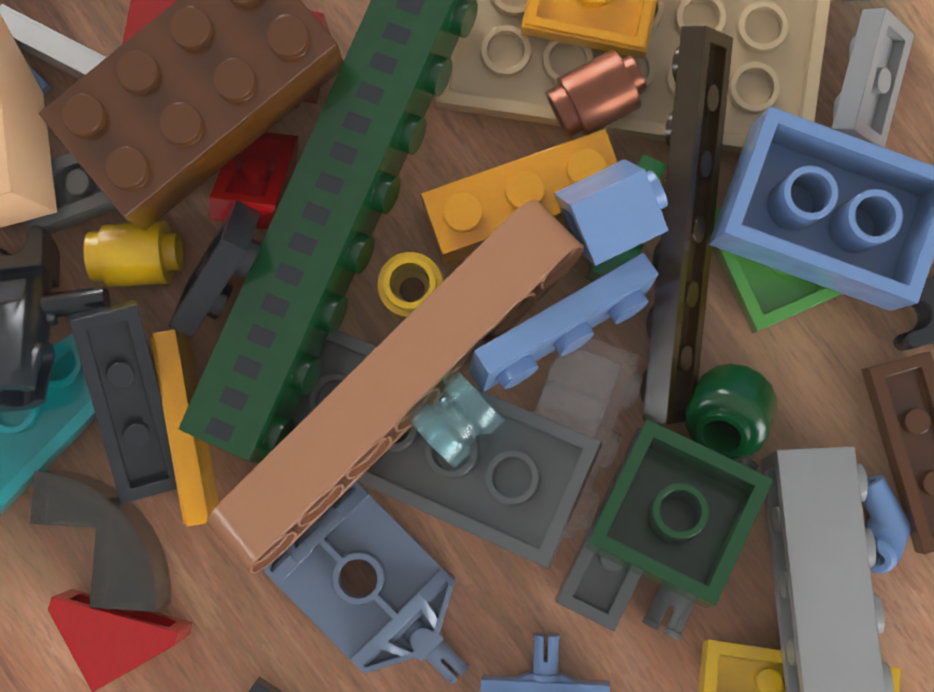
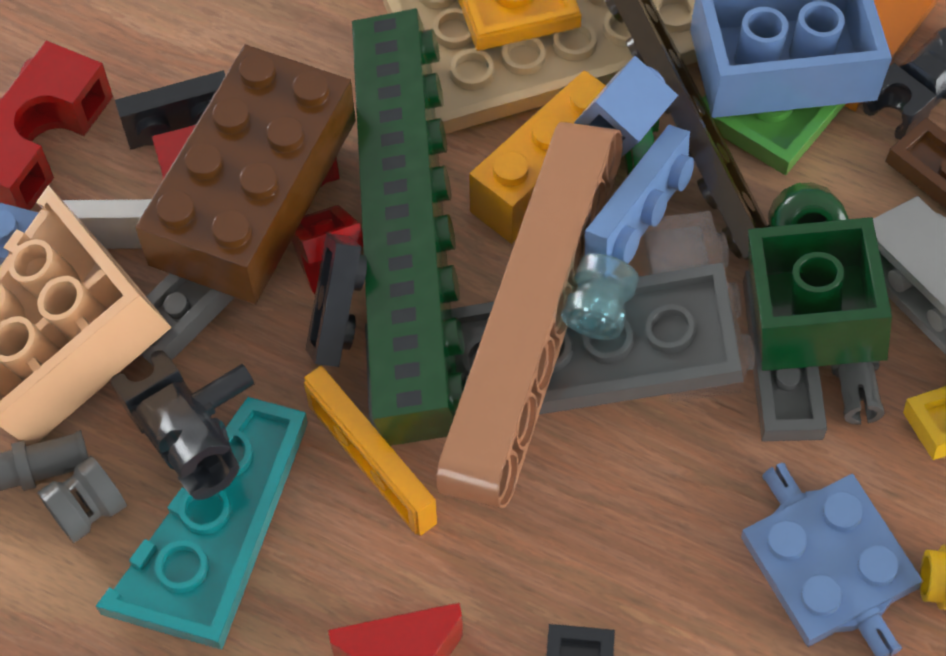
camera: 25 degrees left, 25 degrees down
(125, 398) = (310, 442): black plate -> none
(128, 555) = (319, 552): clear smoke brick -> none
(131, 256) = (251, 339): yellow brick -> none
(393, 620) = (626, 529): sand blue plate -> none
(397, 272) = (491, 248): yellow brick -> none
(597, 93) = (561, 54): copper brick -> none

